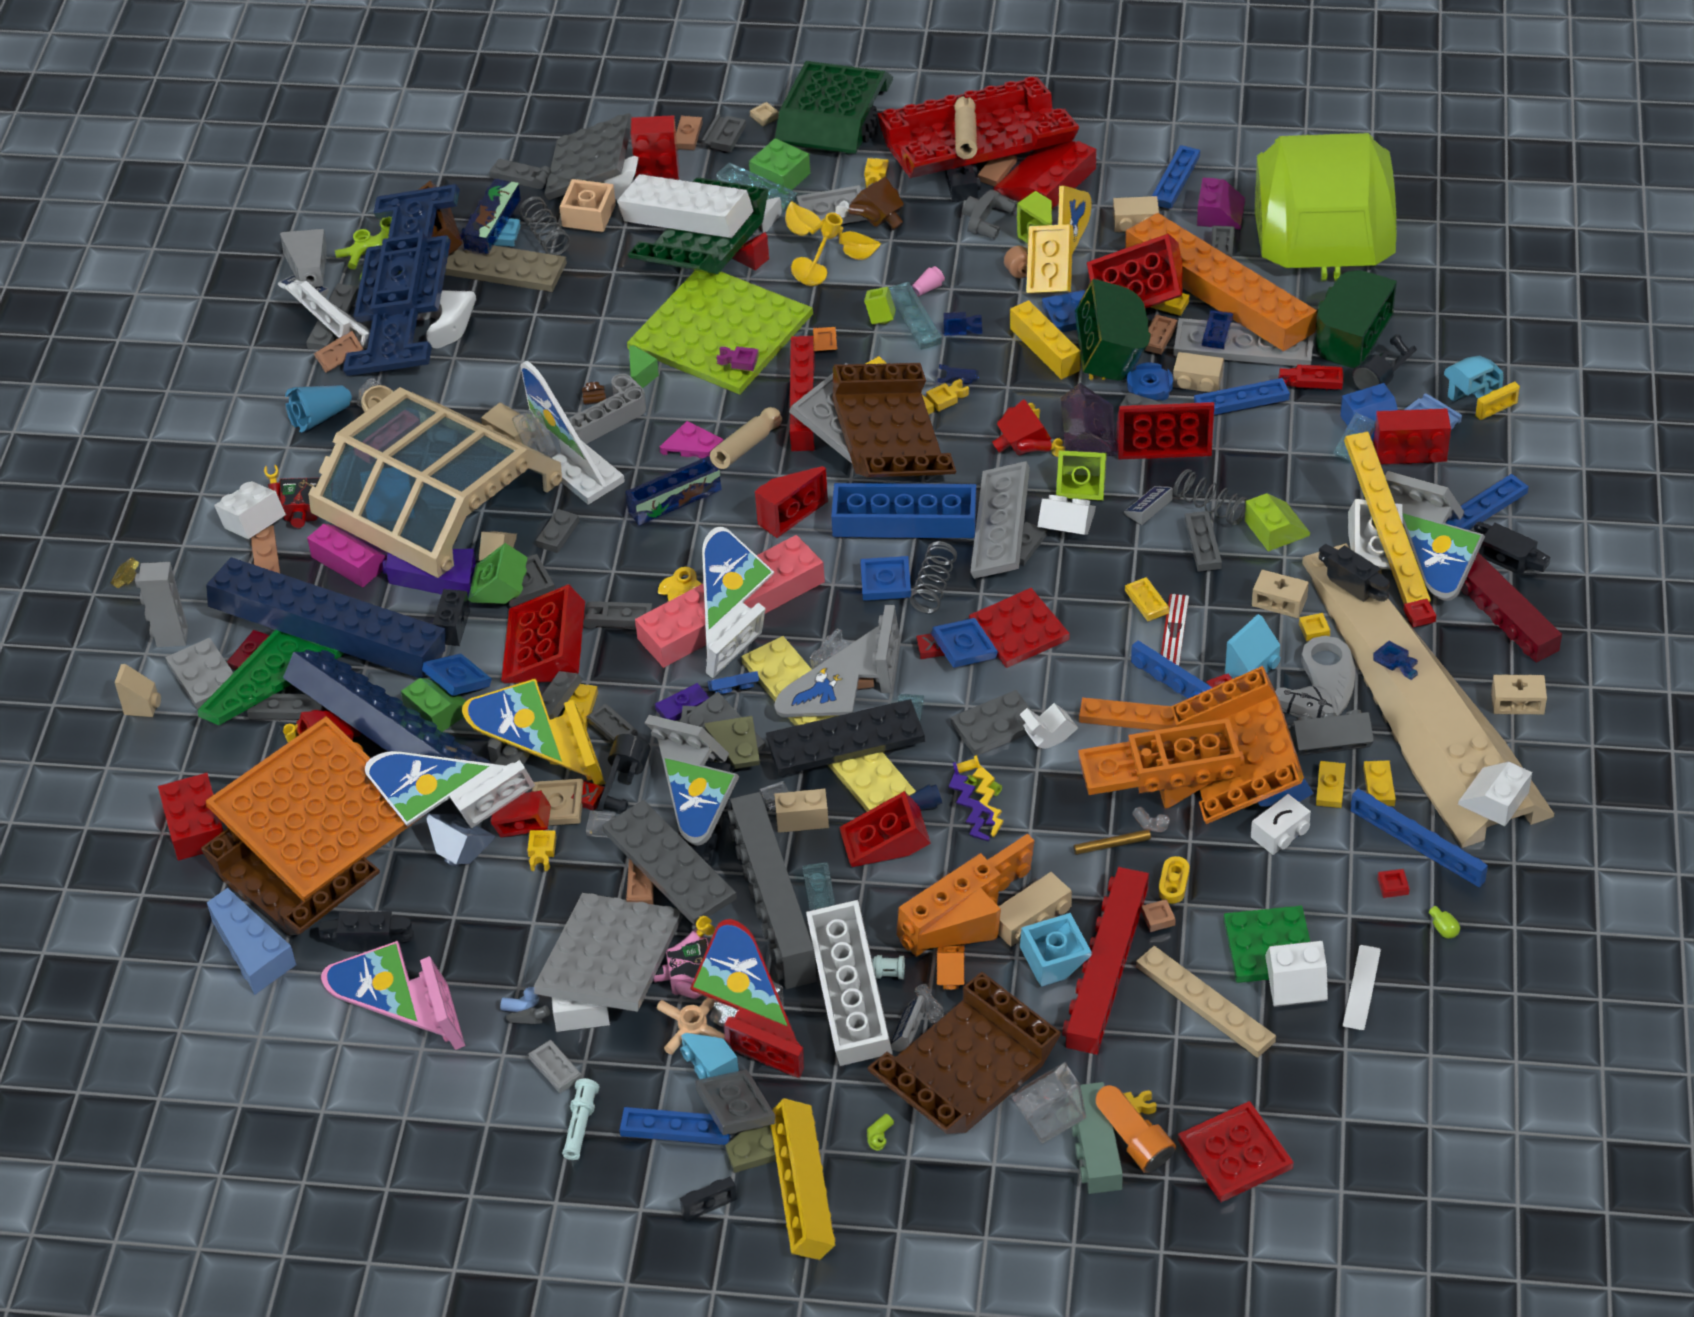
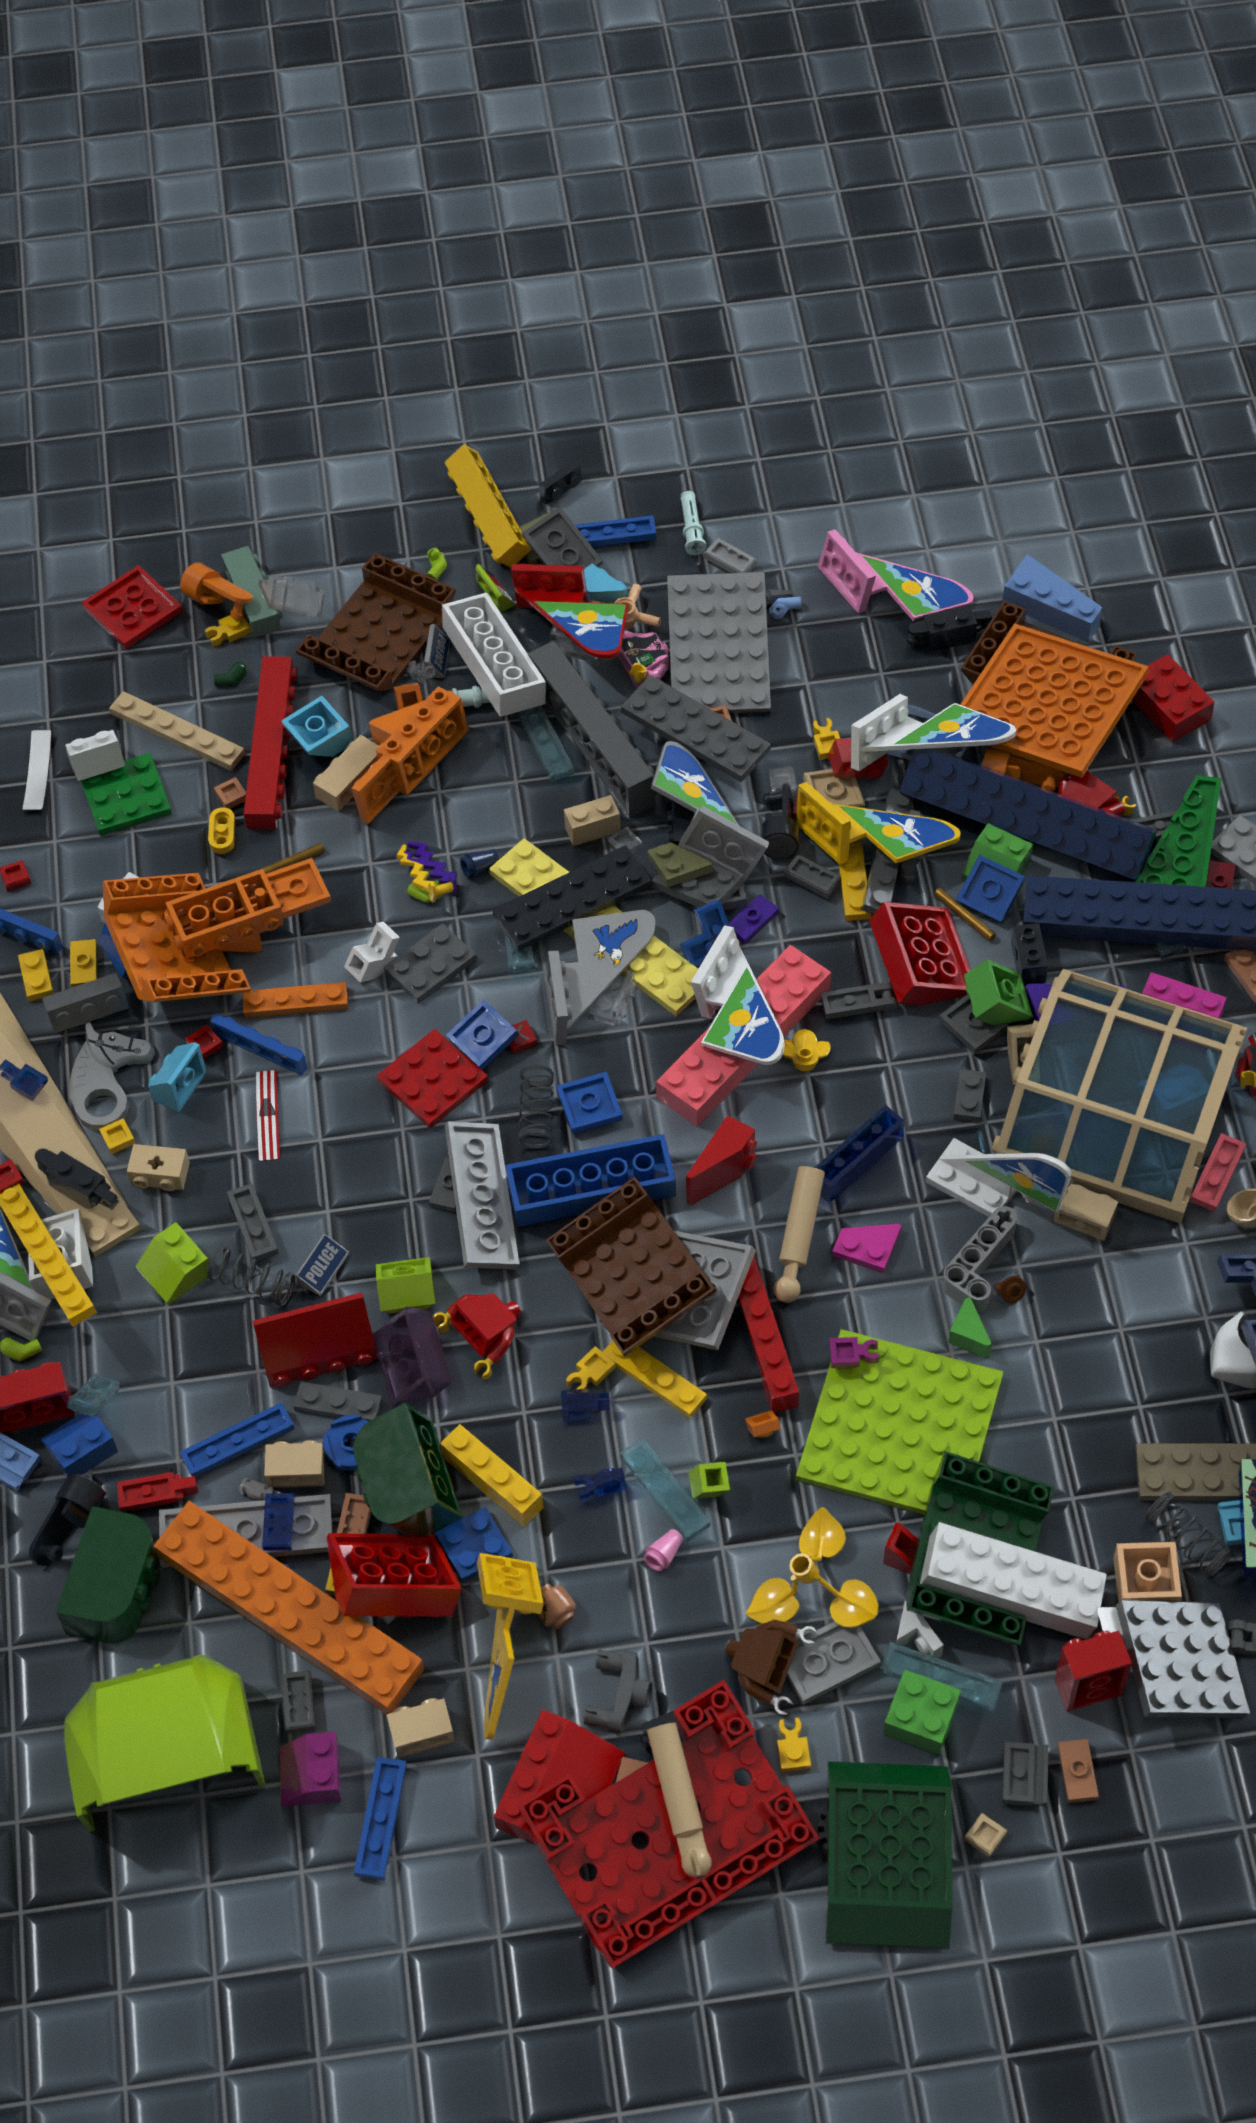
camera: 165 degrees right, 10 degrees up
(486, 667) = (963, 913): none -> pearl gold bar
(822, 1087) = (493, 588): none -> lime slope
(885, 832) = (504, 817): red slope -> none
(1033, 211) = (545, 1662): lime slope -> none
(1066, 516) = (409, 1223): white slope -> none
(1135, 1045) = (232, 677): none -> dark green arm
(1147, 599) = (301, 1134): yellow plate -> none
(1233, 368) = (254, 1489): none -> light grey piece

